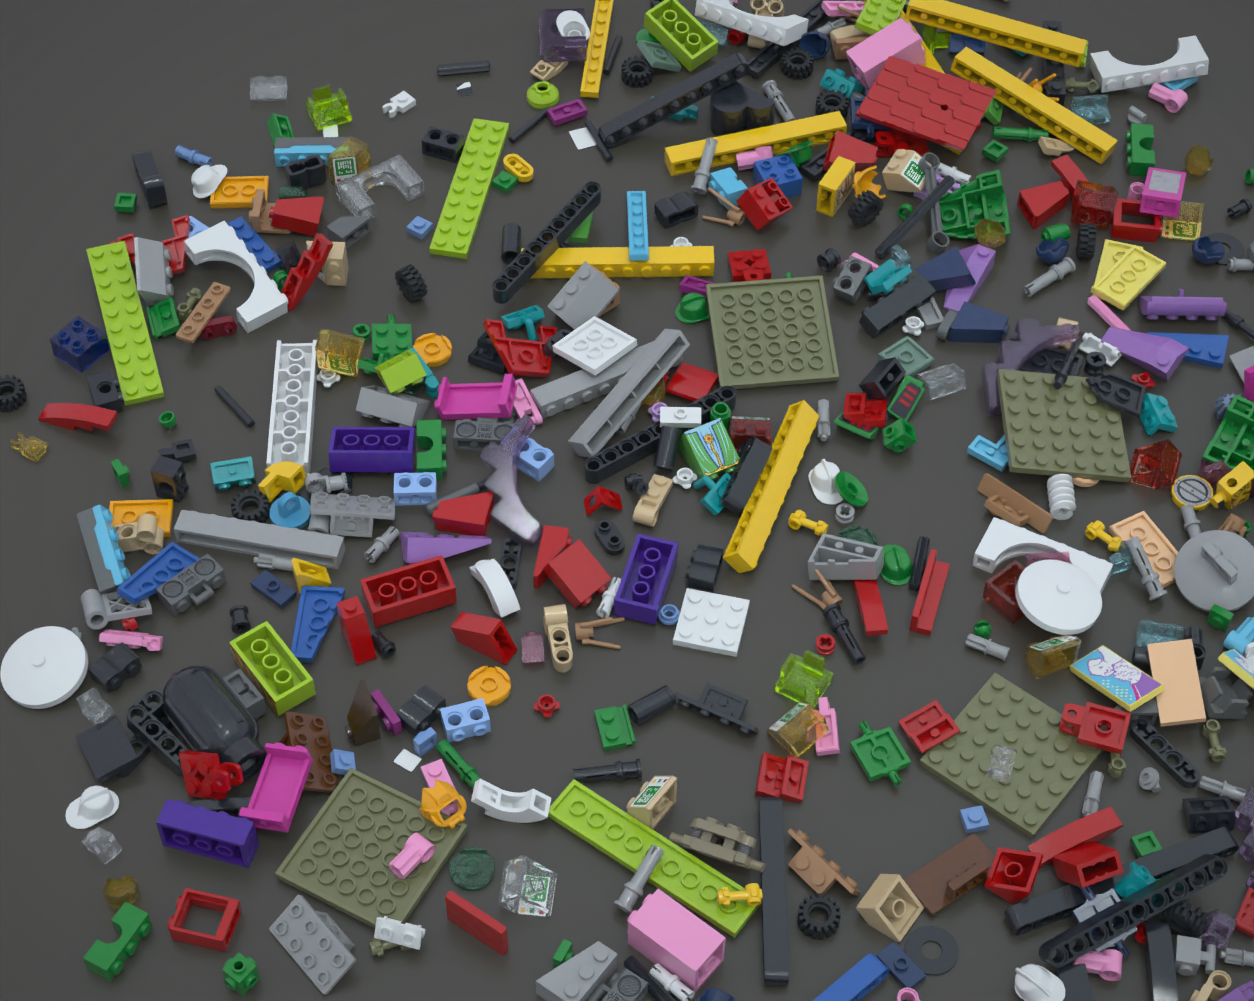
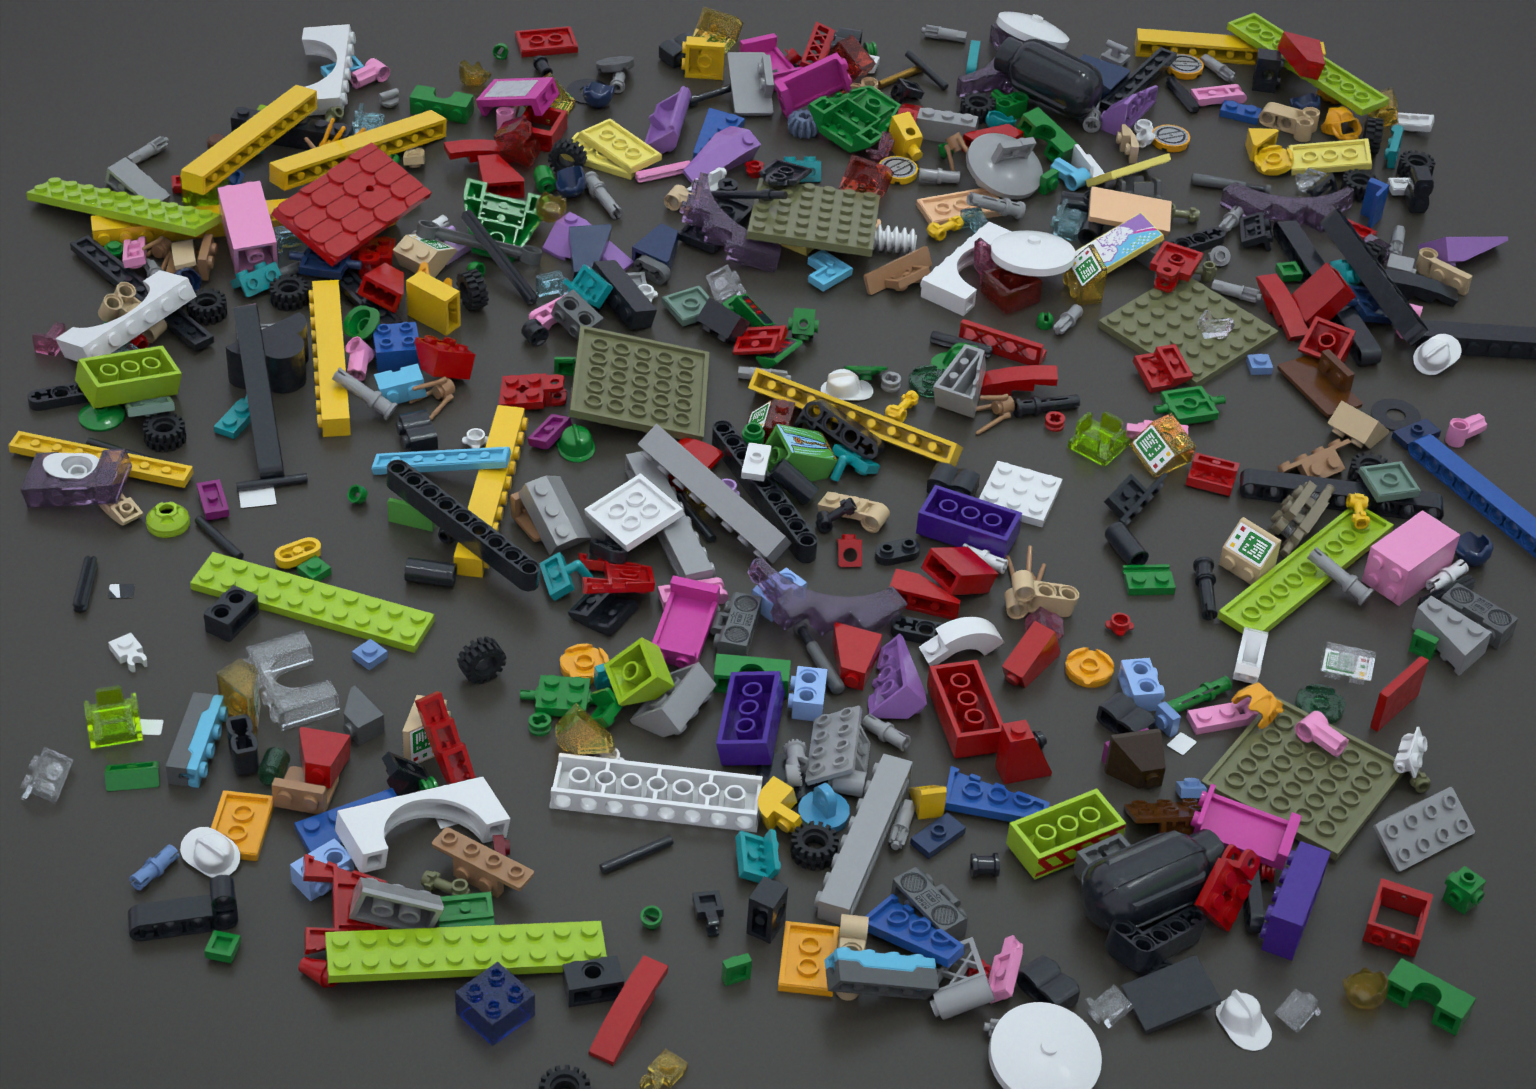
camera: 85 degrees left, 10 degrees down
(685, 477) = (826, 483): white plate -> none
(784, 920) = (1389, 481): none -> sand green plate

